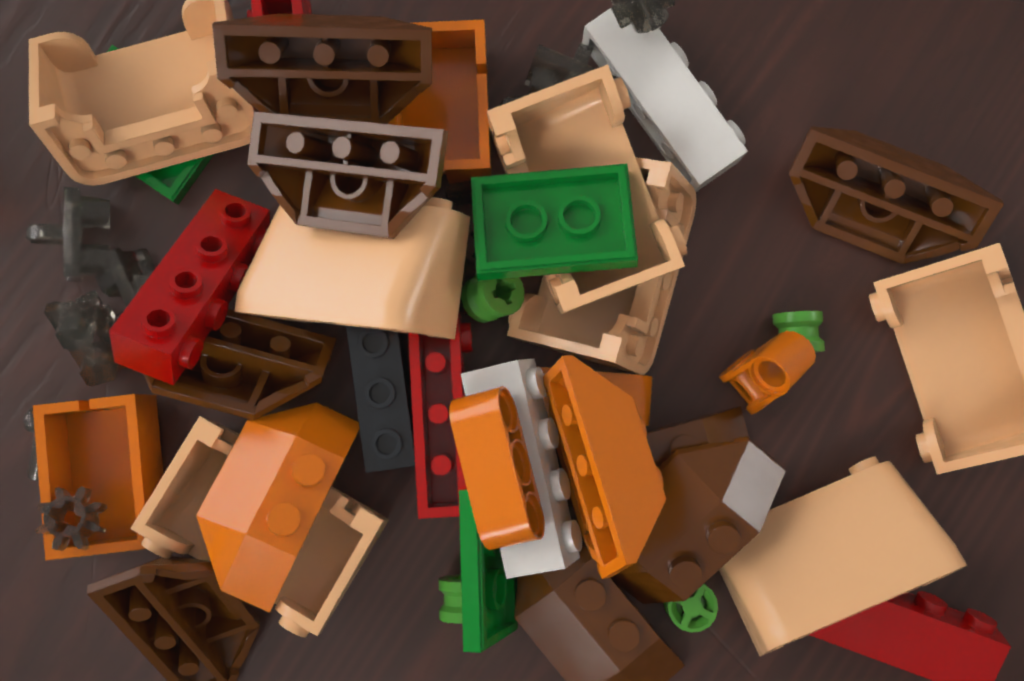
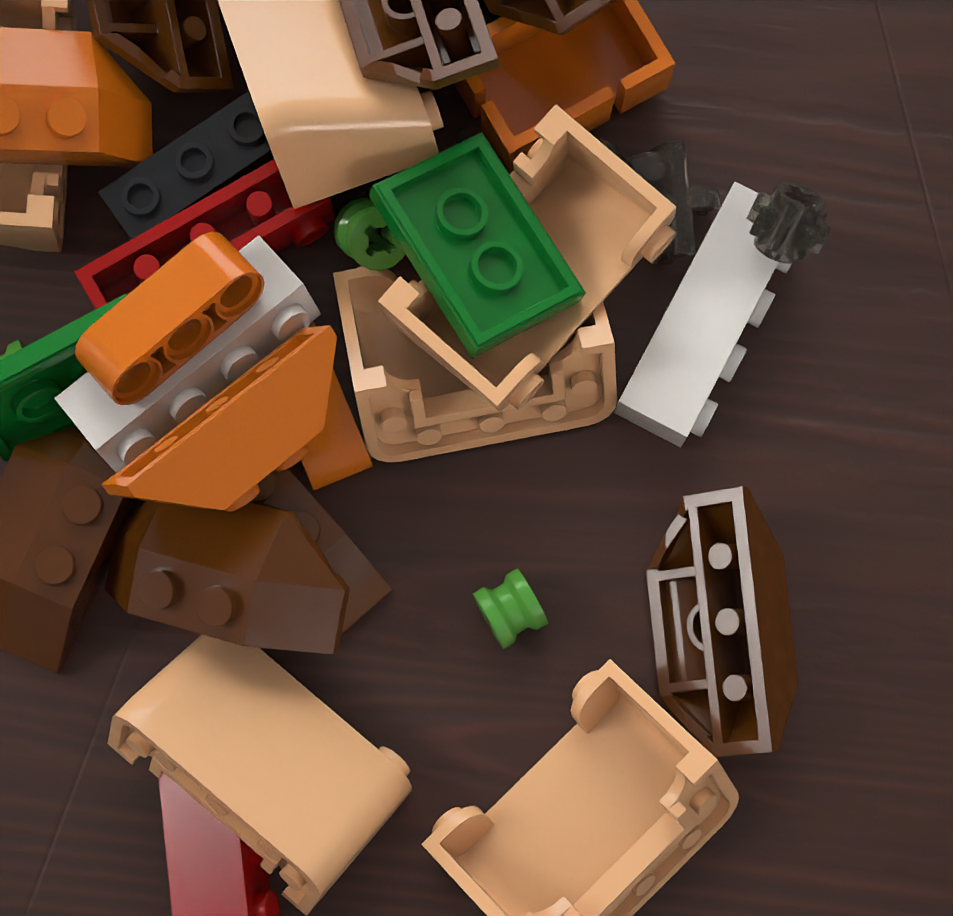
camera: 55 degrees right, 5 degrees down
(699, 610) = (118, 637): bright green wheel -> none
(770, 369) = (446, 590): orange piece -> none

